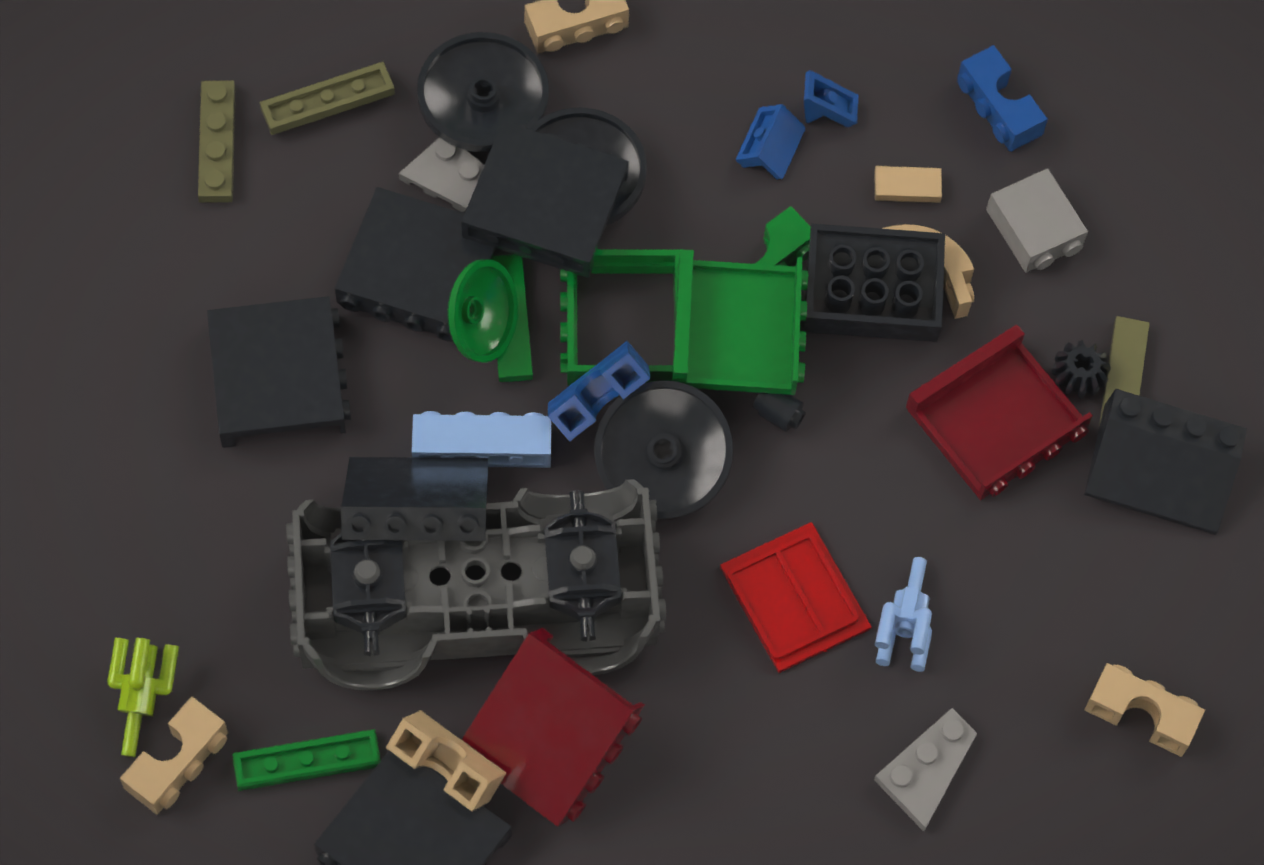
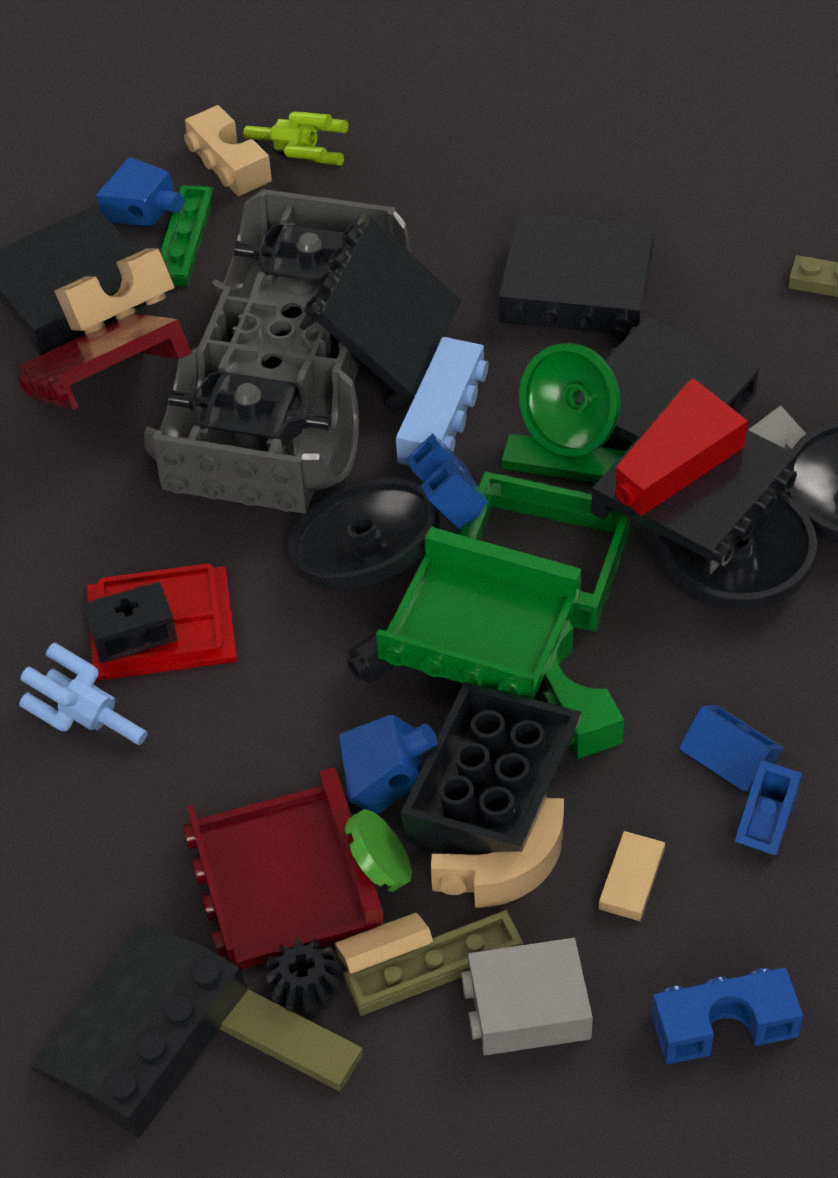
camera: 115 degrees right, 15 degrees down
(270, 816) = (138, 194): none -> blue torso
(537, 197) = (679, 447): none -> red slope
(821, 583) = (130, 622): none -> black brick
(887, 363) = (383, 760): none -> blue torso
(967, 342) = (378, 850): none -> bright green tile
(1028, 294) = (430, 964): none -> olive tile
(1040, 332) = (383, 942): none -> tan tile

